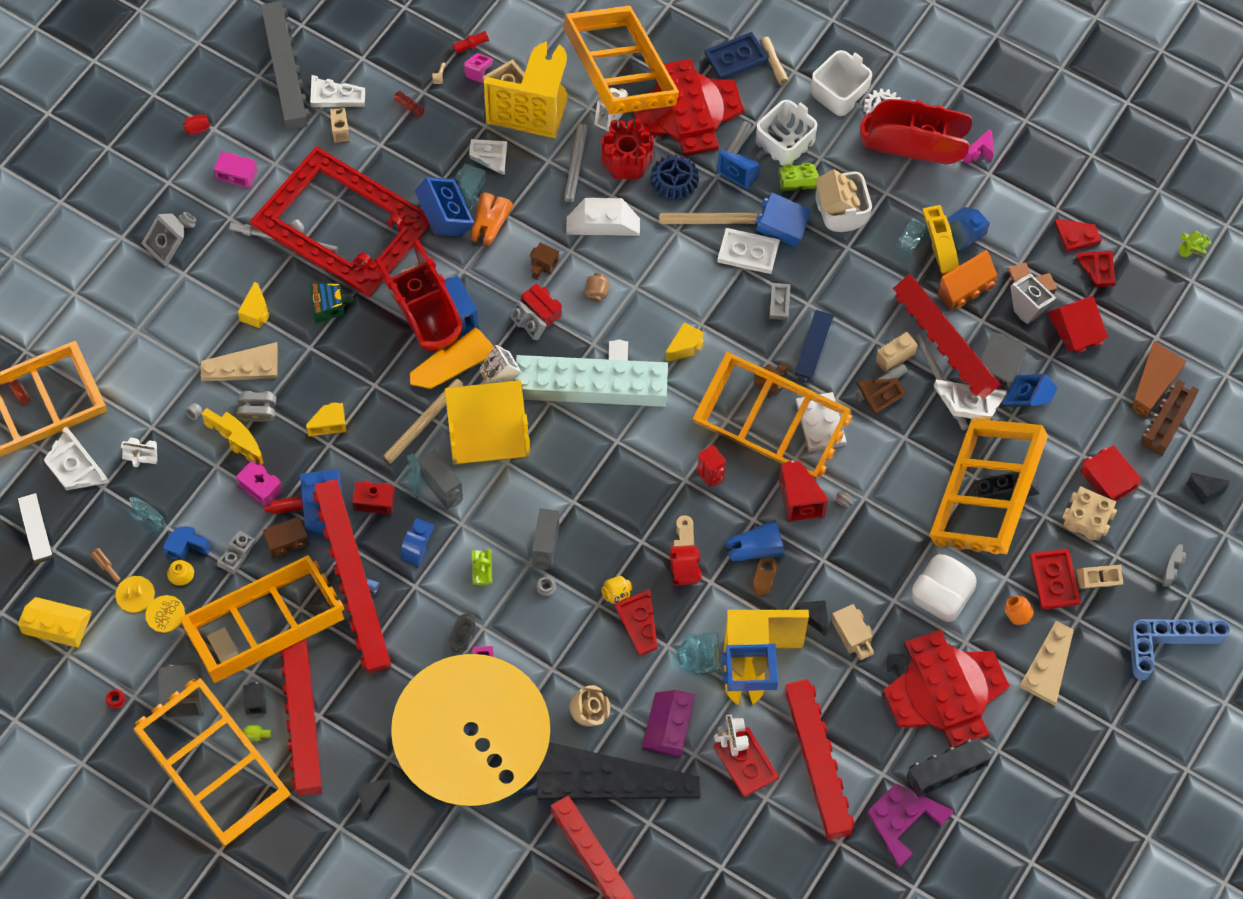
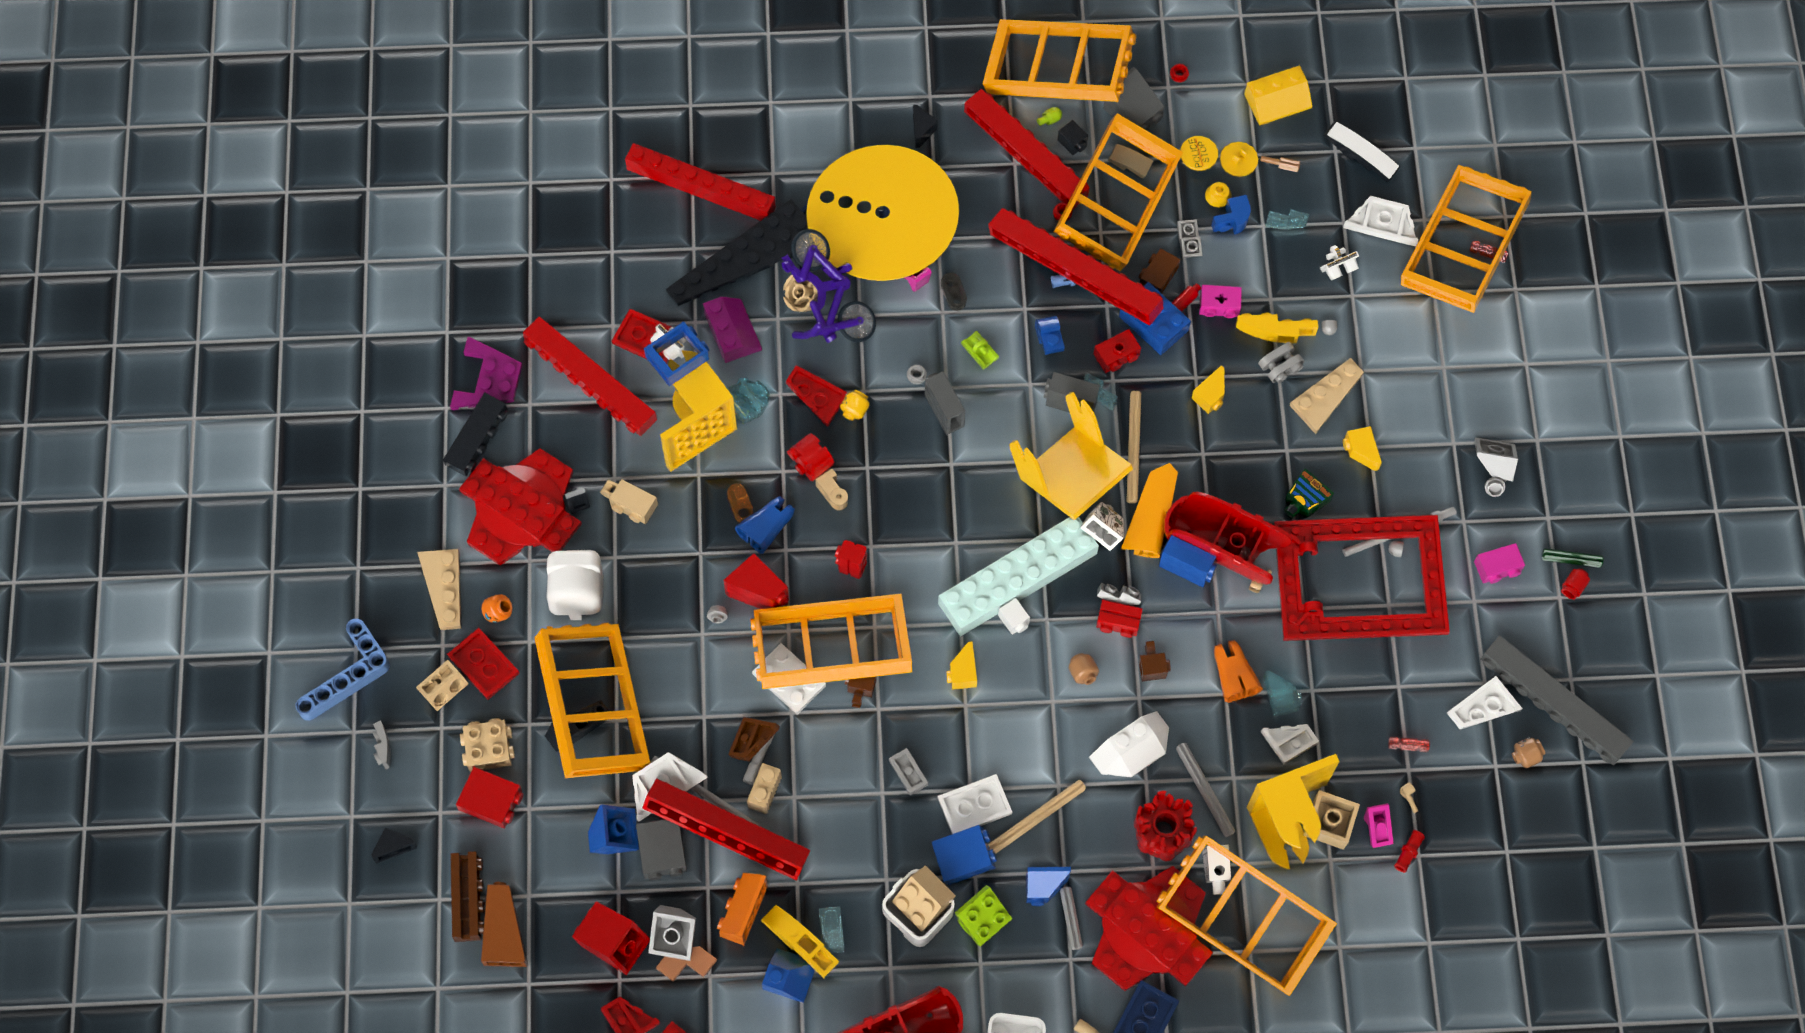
camera: 145 degrees right, 5 degrees up
(180, 144) = (1572, 558): none -> dark green axle
(317, 637) = (1060, 208): none -> red plate
(335, 46) = (1528, 752): none -> medium nougat head
(339, 125) = (1451, 675): tan leg -> none
(444, 207) = (1281, 646): blue brick -> none
(569, 658) = (855, 318): none -> piece
(663, 177) = (1114, 824): dark blue gear -> none
(779, 149) = (1027, 947): white piece -> none
(814, 346) = (843, 743): dark blue slope -> none
(817, 615) = (673, 493): black slope -> none

